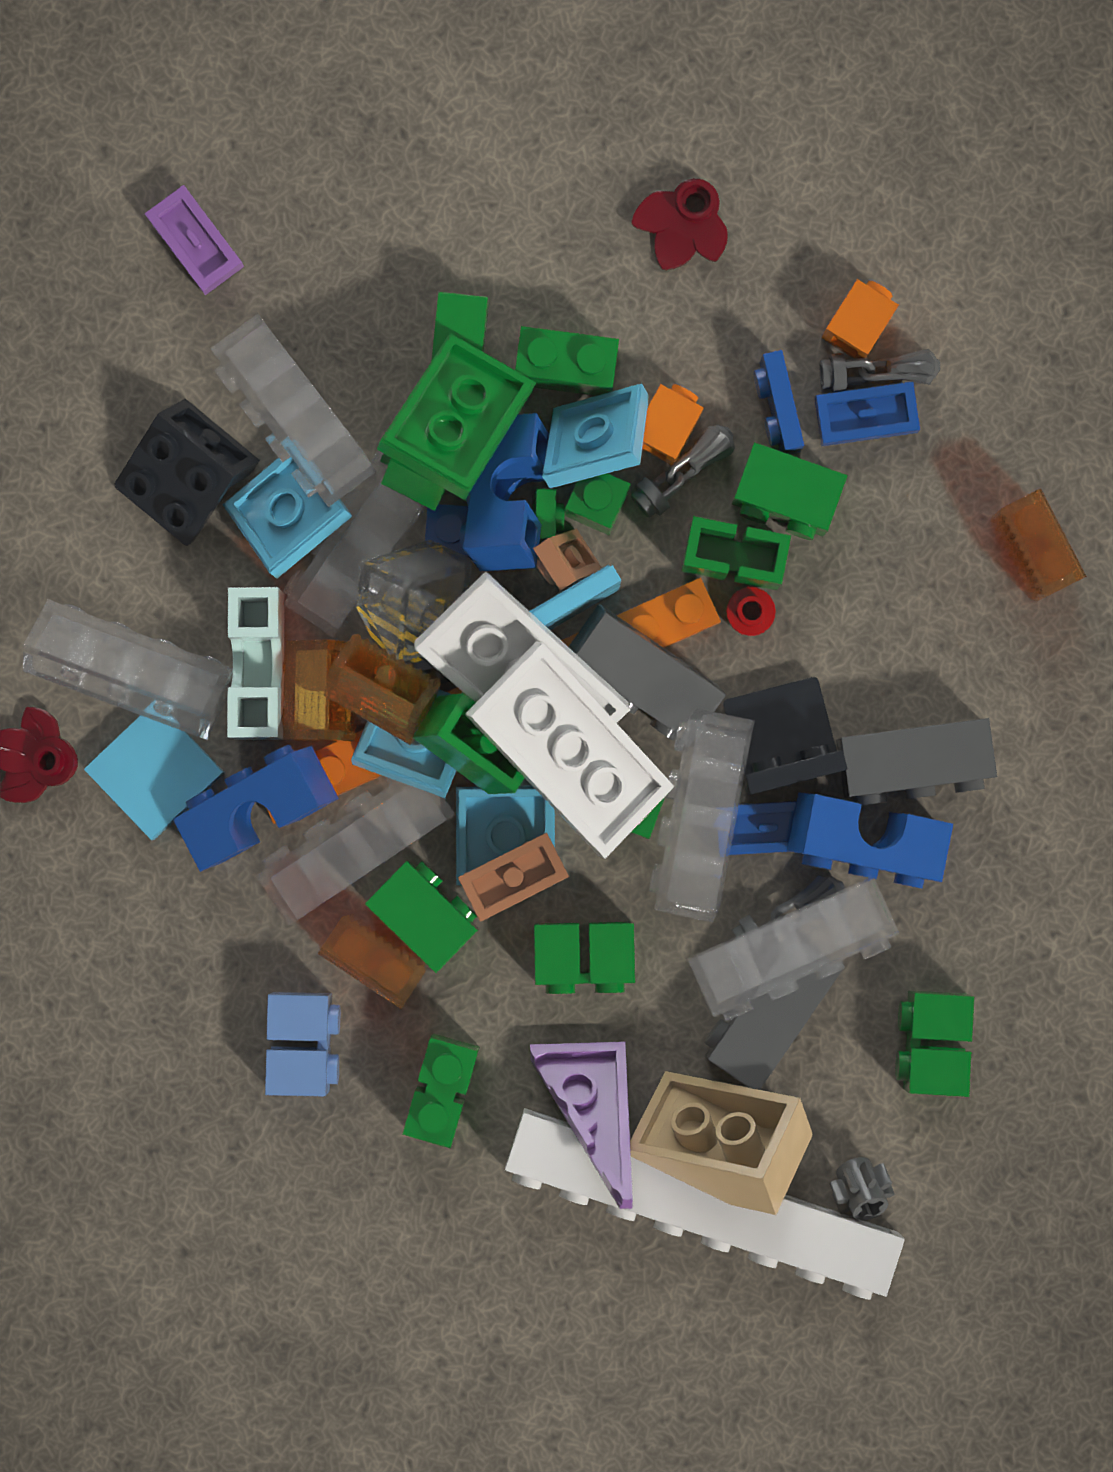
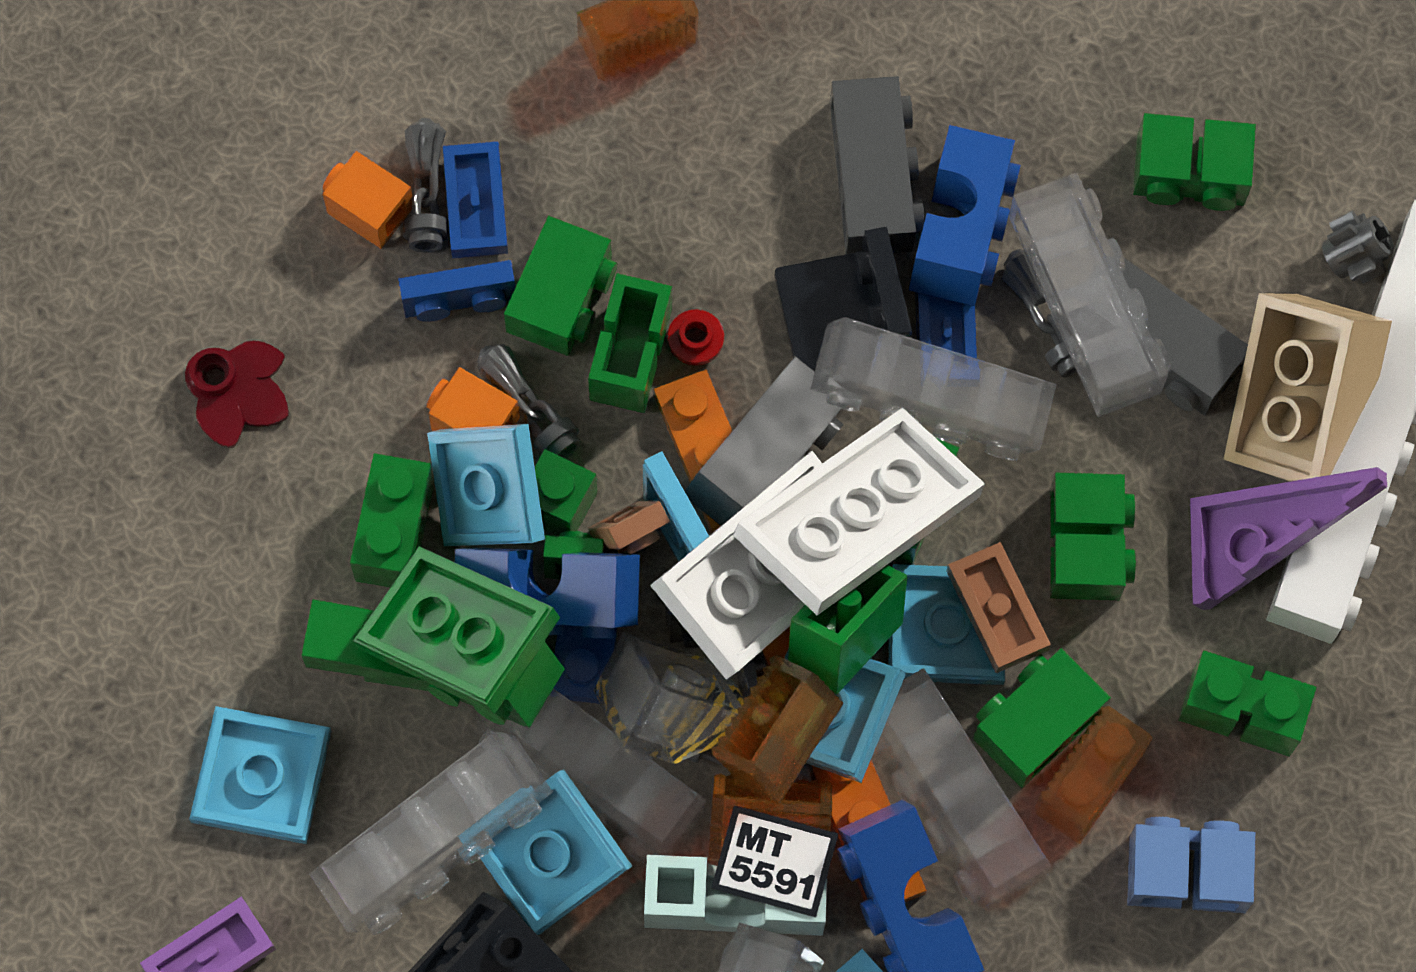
camera: 90 degrees left, 15 degrees down
(275, 693) = (774, 861): none -> sticker
(349, 271) = (260, 775): none -> medium azure tile

